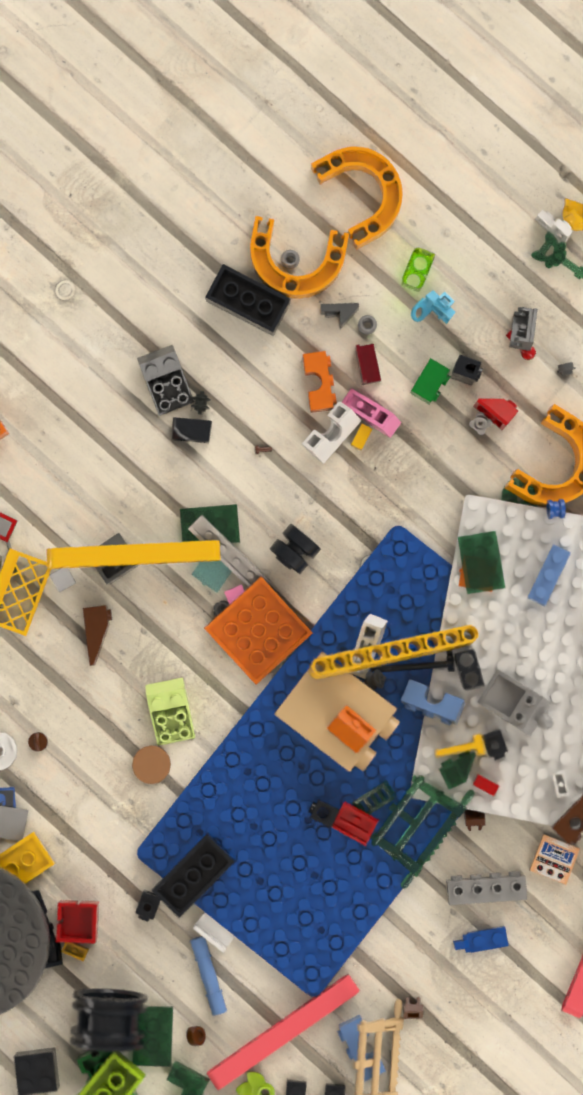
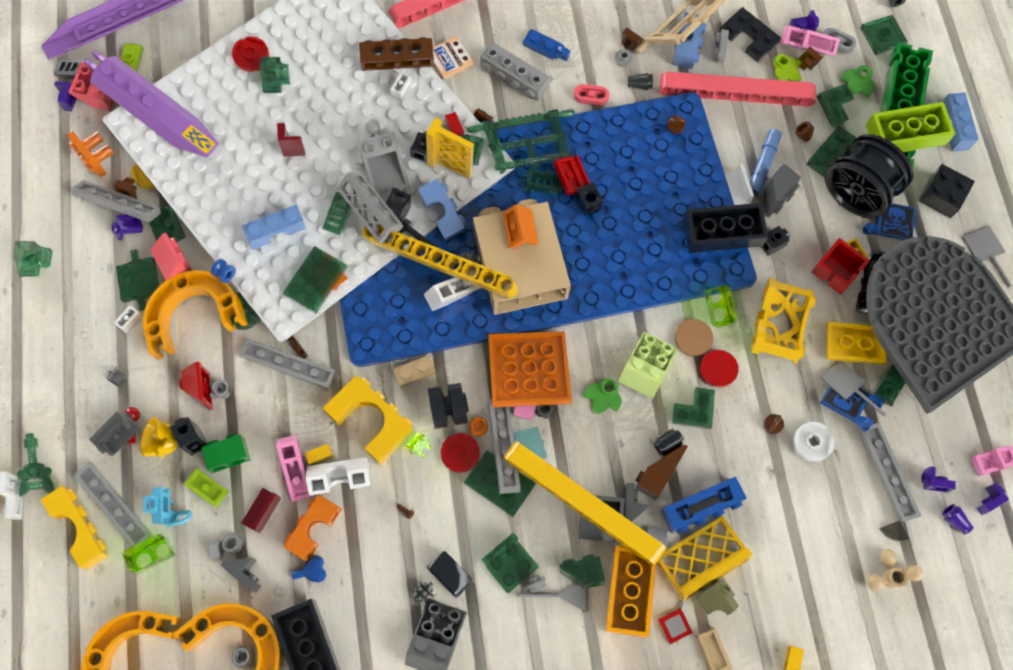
camera: 140 degrees left, 15 degrees down
(33, 635) = (733, 493): none -> blue brick
(49, 517) = (629, 594): none -> light orange brick
(58, 1008) = (894, 223): none -> flag
(91, 489) = (573, 595): none -> light grey piece
(94, 510) = (584, 572): none -> clear green slope
(96, 583) = (632, 510): none -> dark grey slope
(96, 806) = (762, 340): none -> yellow fence
(100, 701) = (699, 414): none -> clear green plate
(107, 660) = (668, 442): none -> black brick
(112, 754) = (719, 368): none -> red tile
(124, 474) = (535, 583): none -> light grey plate
(134, 801) = (729, 308): none -> clear neon green piece
(154, 473) = (509, 563): none -> clear green bracket
(176, 953) = (780, 189): none -> dark grey slope
(185, 654) = (601, 398): none -> bright green plate
(258, 524) = (460, 452): none -> red tile
(261, 555) = (478, 426): none -> orange plate
(293, 353) = (312, 570): none -> blue rock
(294, 504) = (418, 443): none -> clear neon green tile
(307, 946) = (676, 124): none -> reddish brown tile
(325, 1059) = (721, 50): none -> light grey plate
(346, 558) = (414, 371): none -> tan plate
(371, 506) = (359, 394): none -> yellow arch
(371, 970) = (641, 81): none -> pearl dark grey cone
(374, 310) = (215, 550): none -> light grey tile
(403, 977) = (623, 62): none -> light grey plate
(404, 922) = (591, 93): none -> coral plate
(421, 346) = (206, 488): none -> lime plate
(447, 484) = (287, 363): none -> light grey plate
(449, 503) = (297, 347): none -> reddish brown pin
(465, 239) = (87, 547): none -> yellow arch
(477, 280) = (112, 504): none -> light grey plate
(487, 655) = (369, 198): none -> light grey fence
(488, 349) = (157, 439): none -> yellow helmet
(510, 647) = (332, 211): none -> clear green slope

